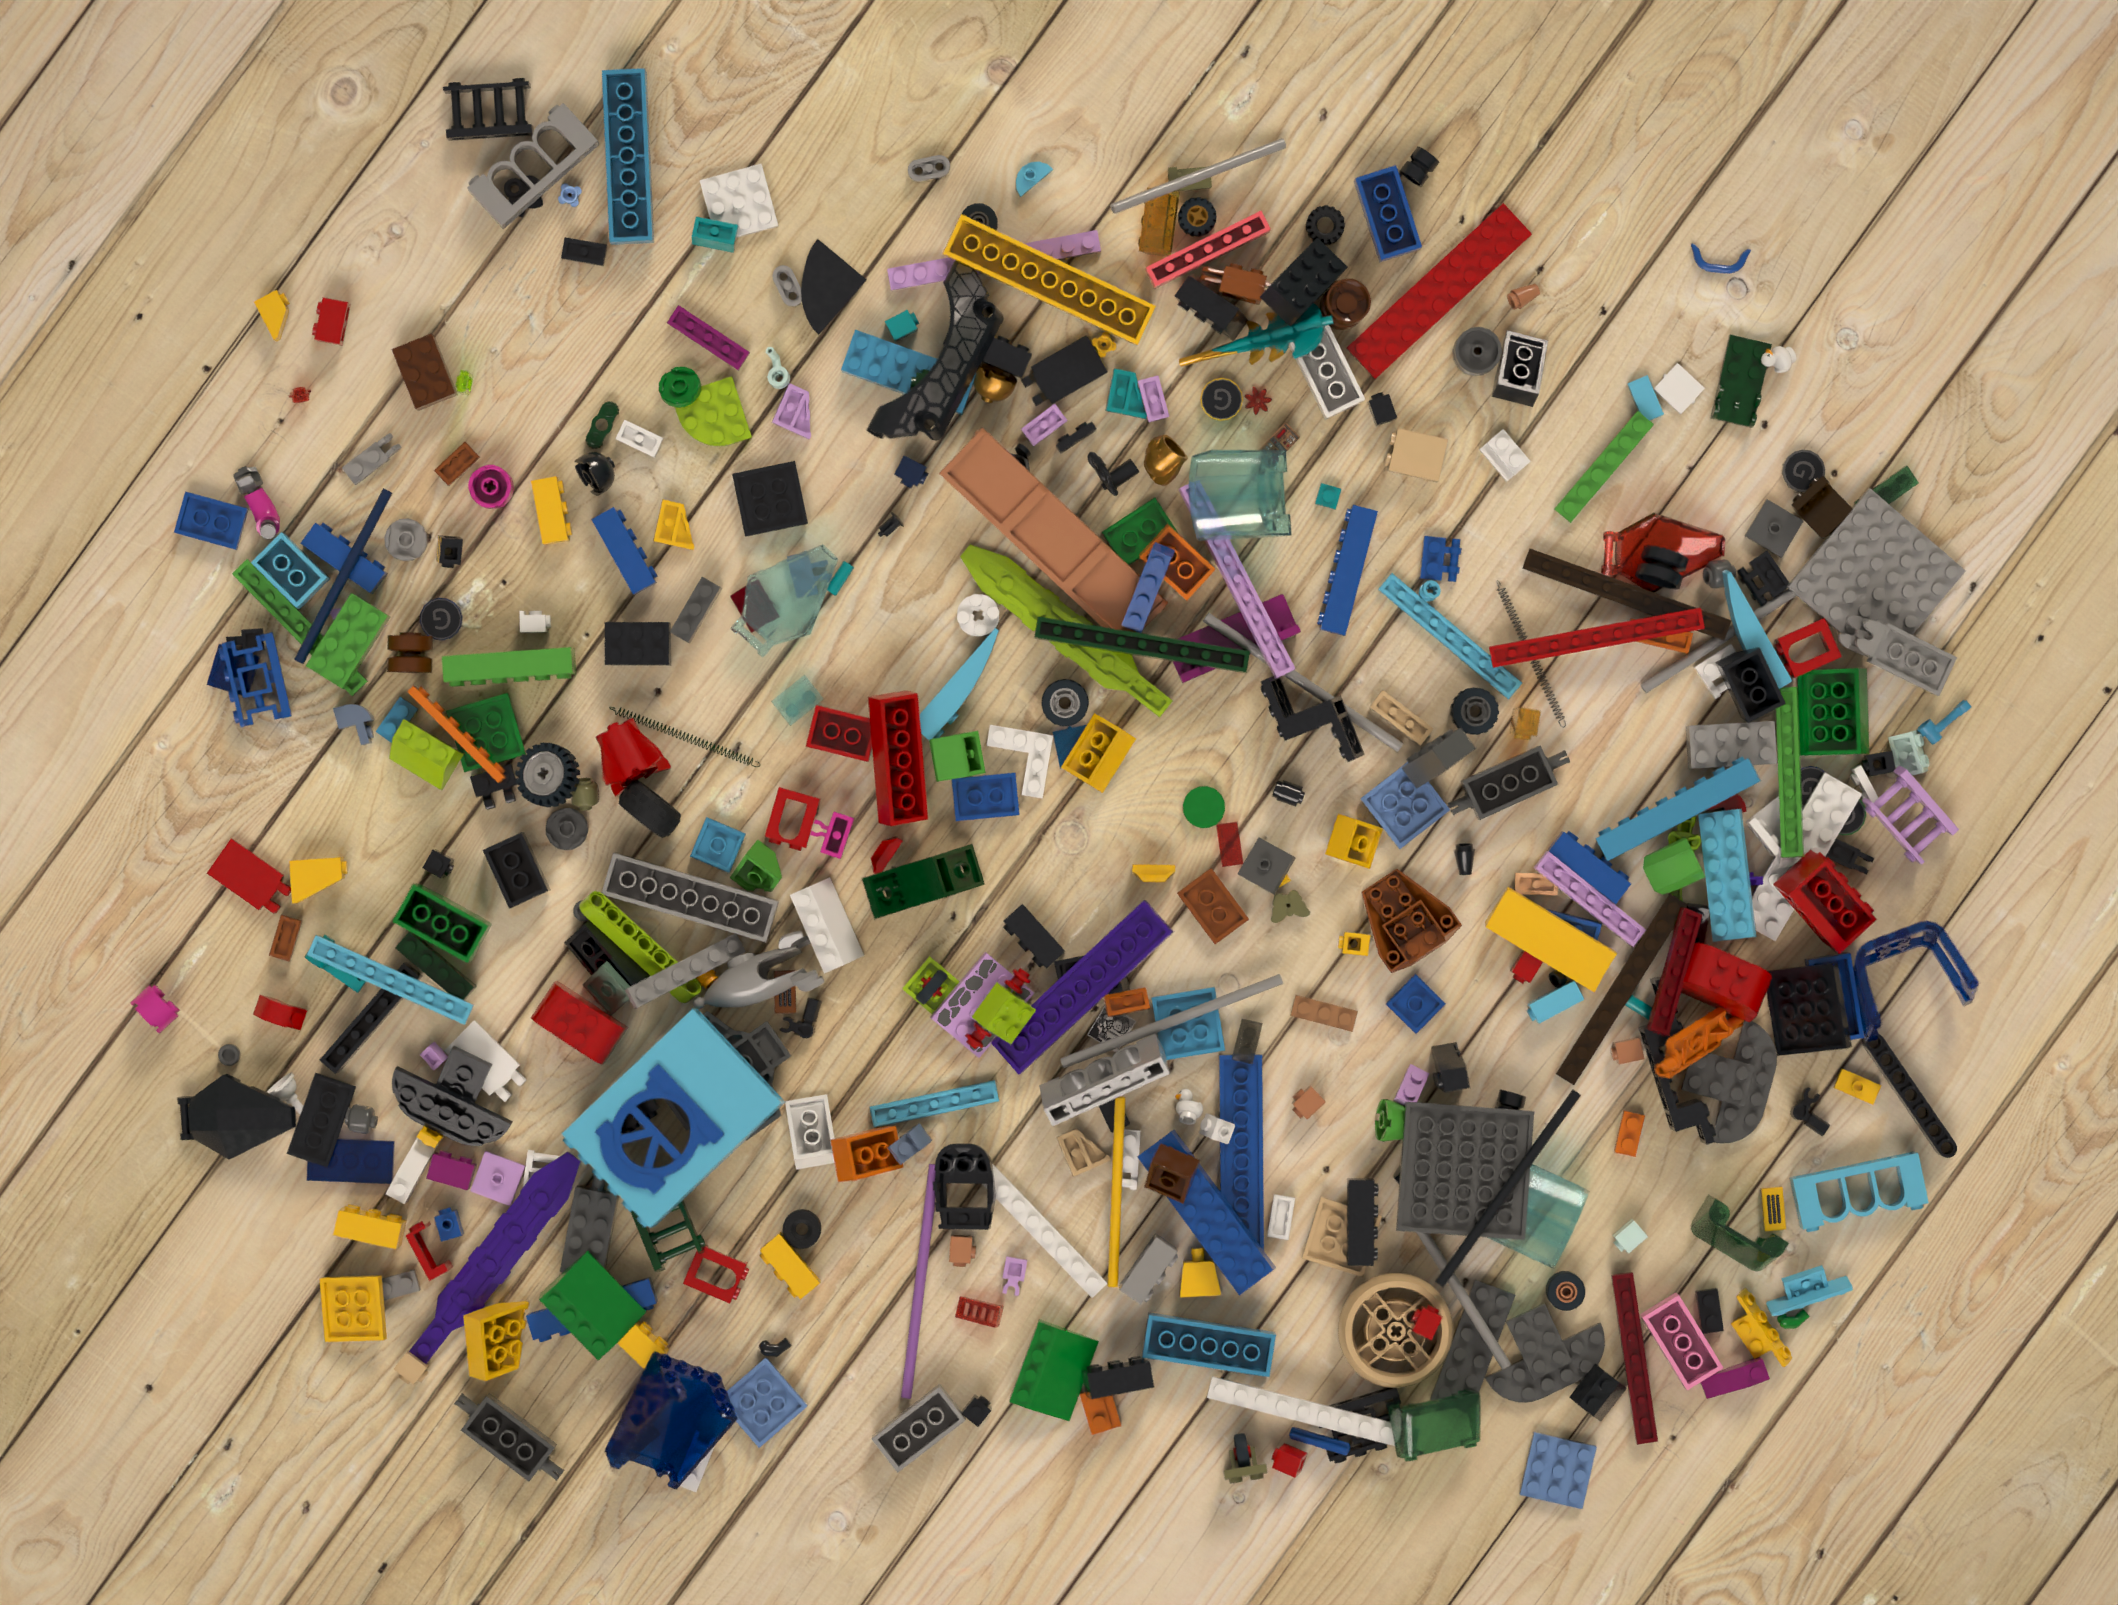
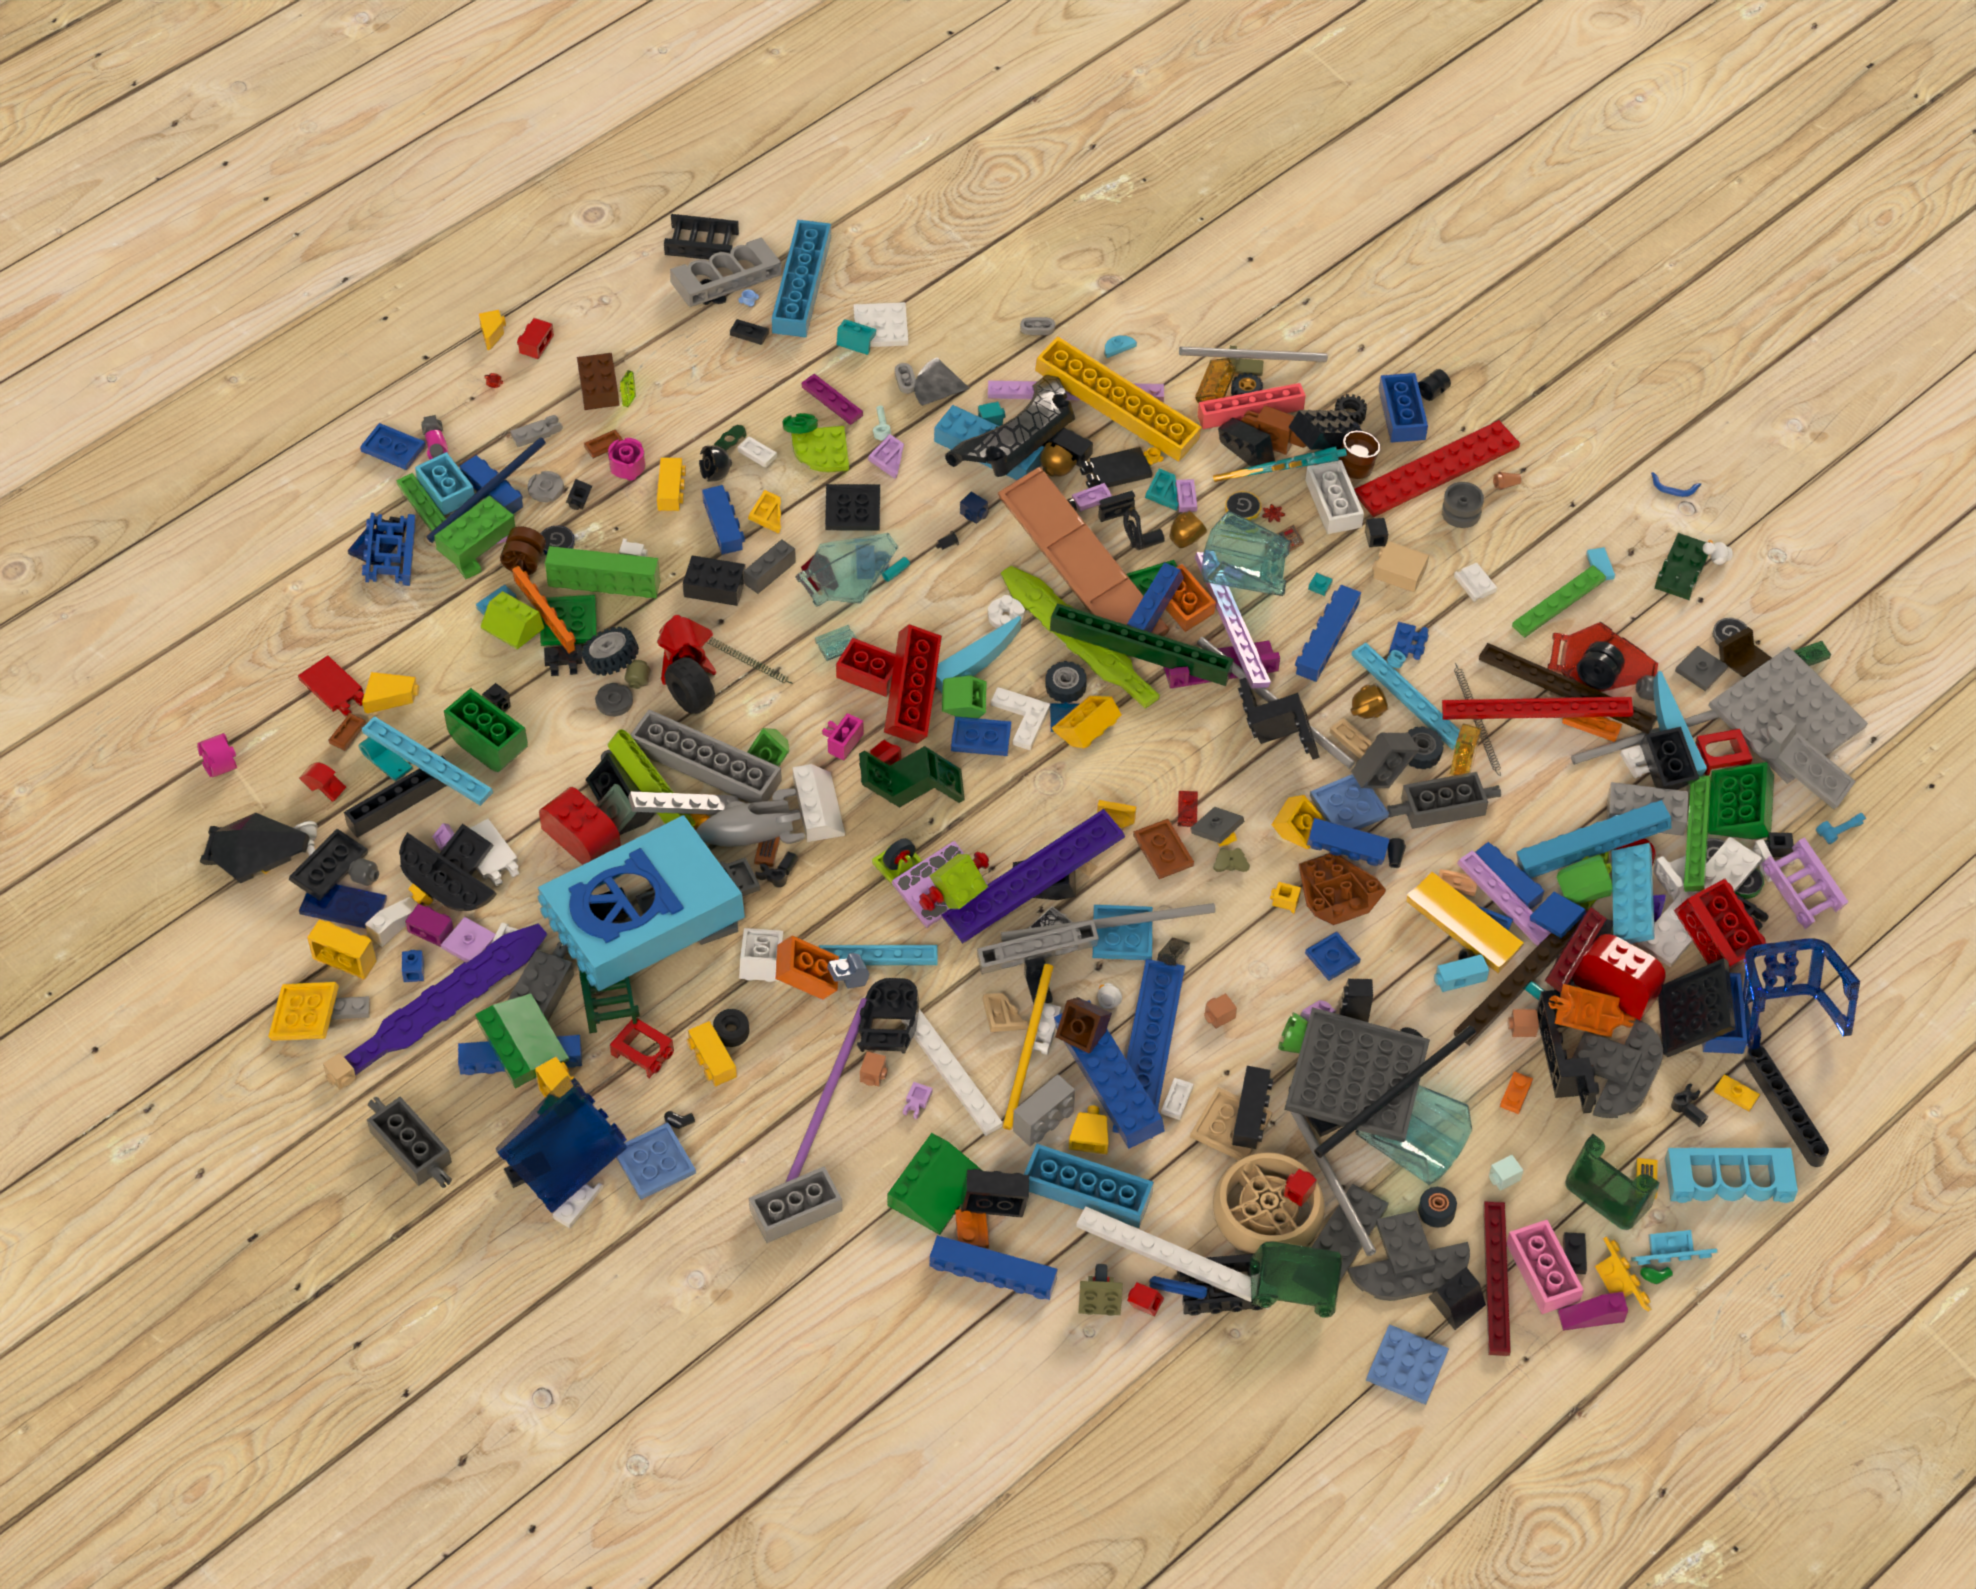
camera: 10 degrees right, 35 degrees down
(229, 1054) = (267, 808): dark grey tile -> none
(352, 715) = (461, 589): sand blue brick -> none
(423, 1253) = (390, 988): red panel -> none
(435, 966) = (457, 755): dark green brick -> none
(494, 1339) = (422, 1060): yellow wedge -> none
(516, 870) = (562, 713): black brick -> none
(717, 845) = (739, 730): dark azure plate -> none
(773, 826) = (817, 707): red panel -> none
(977, 1409) = (855, 1202): black brick -> none
(995, 1322) = (889, 1131): clear red slope -> none
(1033, 936) = (998, 841): black brick -> none
(1126, 1002) = (1070, 905): orange plate -> none
(1131, 1453) = (993, 1267): none -> blue brick
(1204, 807) = (1170, 777): green tile -> none
(1216, 1128) = (1132, 1012): white bracket -> none
(1288, 793) = (1247, 777): black brick -> none
(1323, 1013) = (1247, 948): medium nougat plate -> none
(1405, 666) = (1369, 702): none -> pearl gold helmet
(1411, 862) = (1347, 841): none -> blue brick
(1520, 369) = (1496, 526): black slope -> none
(1525, 967) = (1439, 941): red brick -> none
(1649, 915) = (1557, 914): none -> blue tile
(1679, 388) = (1630, 563): white piece -> none
(1768, 573) = (1694, 697): black plate -> none
(1909, 752) = (1811, 835): light aqua bracket -> none

